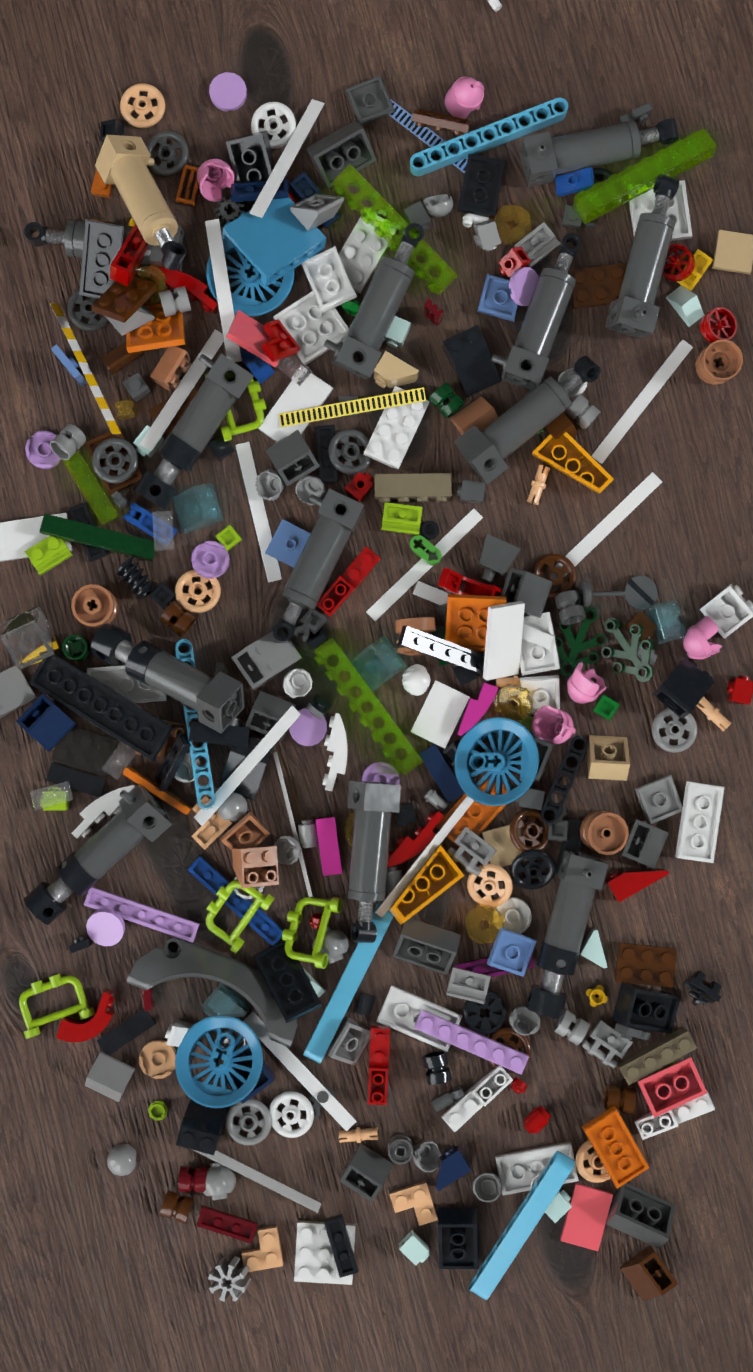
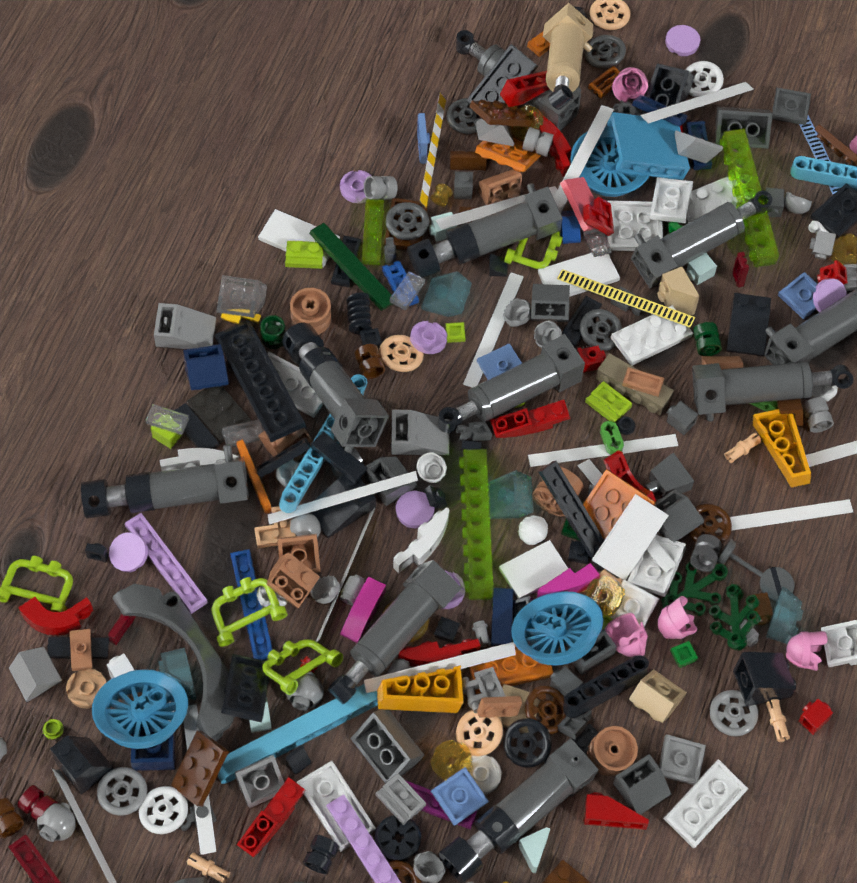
camera: 30 degrees right, 25 degrees down
(131, 1035) = (81, 650): none -> nougat plate
(298, 1070) = (199, 768): none -> reddish brown plate
(421, 484) = (643, 382): none -> nougat tile
(491, 865) = (499, 706): none -> nougat plate

